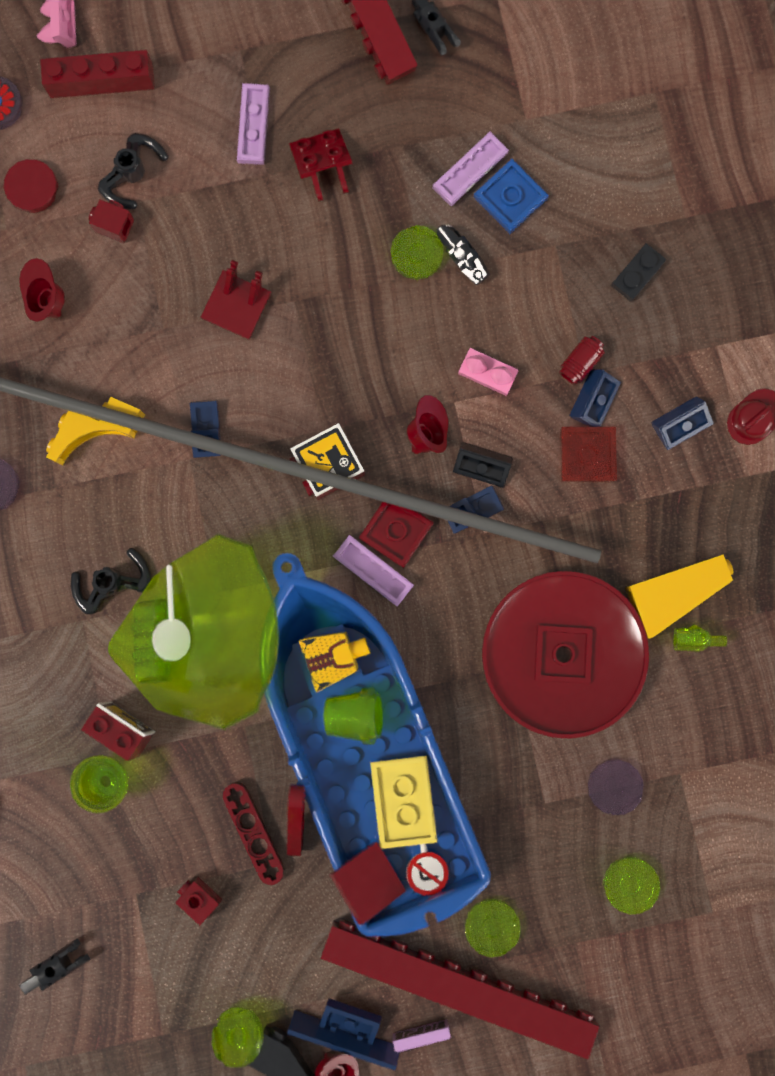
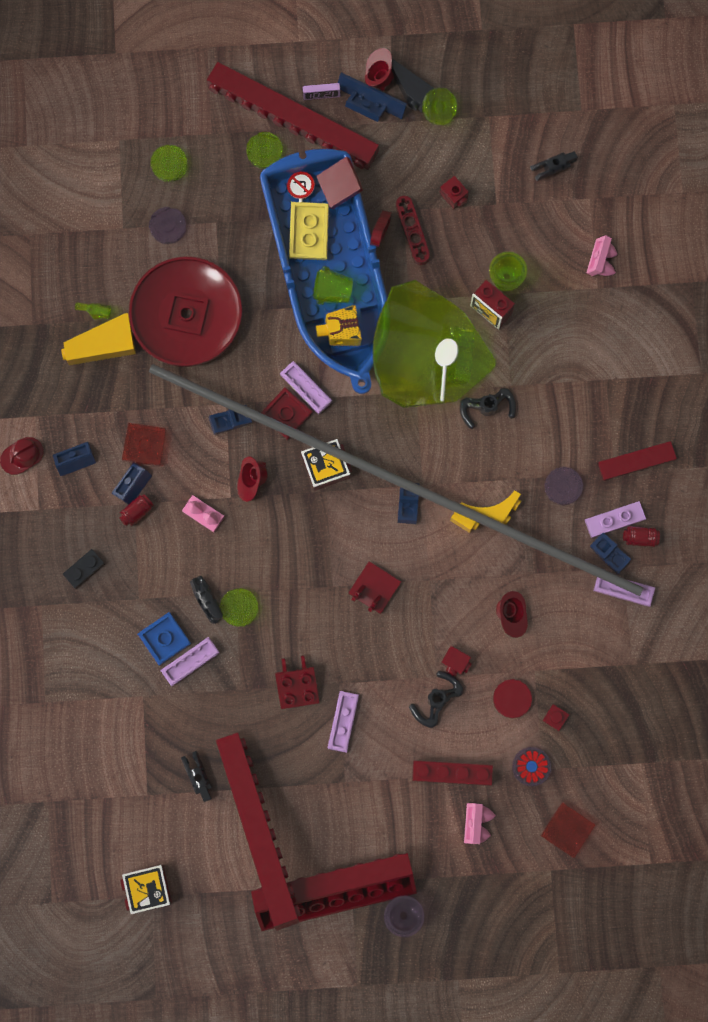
camera: 170 degrees left, 5 degrees down
(482, 464) = (218, 450): black slope -> none

